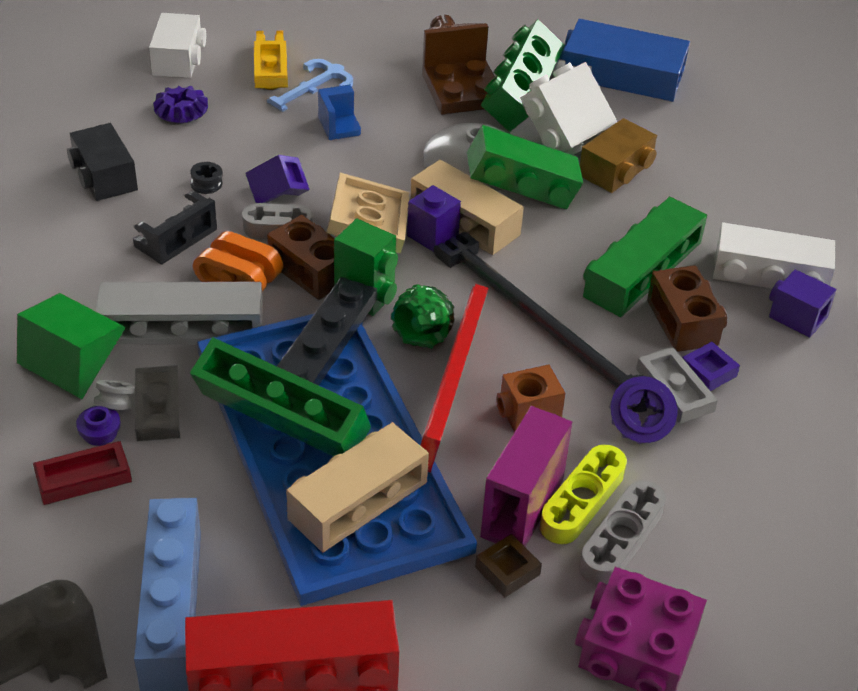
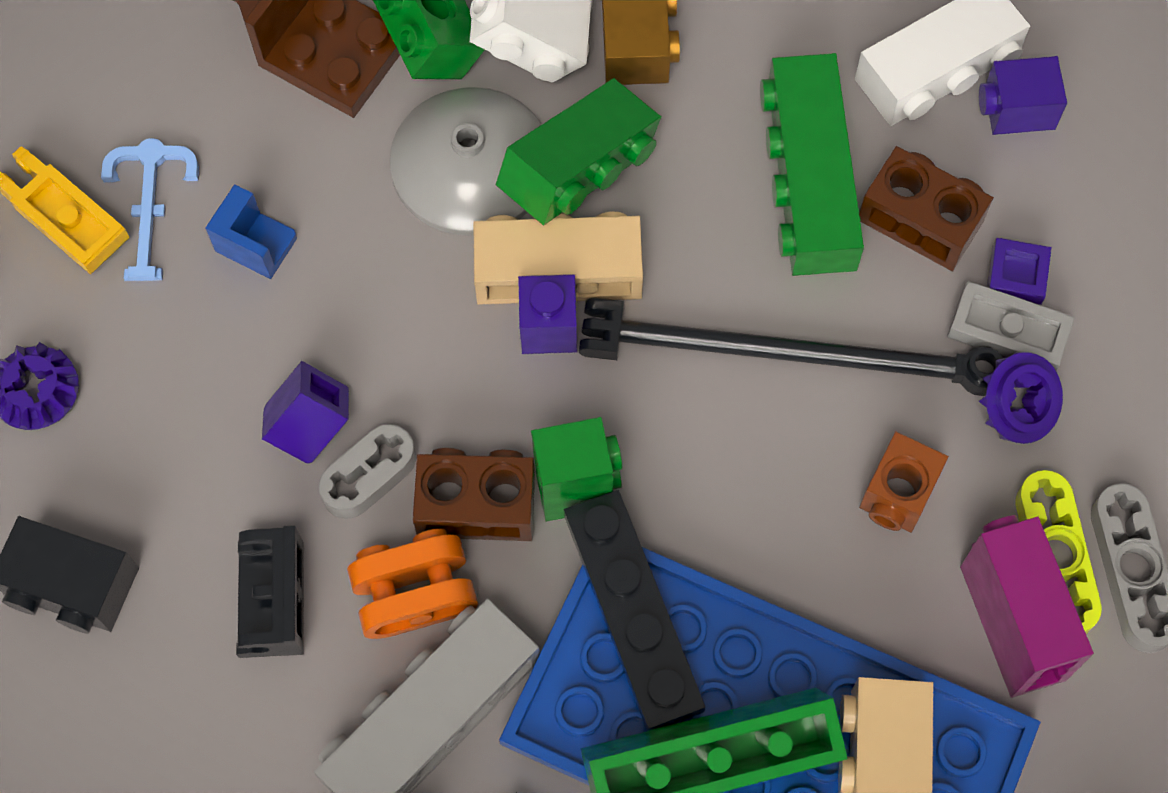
camera: 40 degrees left, 25 degrees up
(206, 177) = (200, 461): black bush -> none
(371, 203) = (478, 376): tan plate -> none
(423, 316) = (690, 475): green piece -> none
(452, 373) = (814, 534): red tile -> none
(508, 565) = (1085, 716): dark brown plate -> none

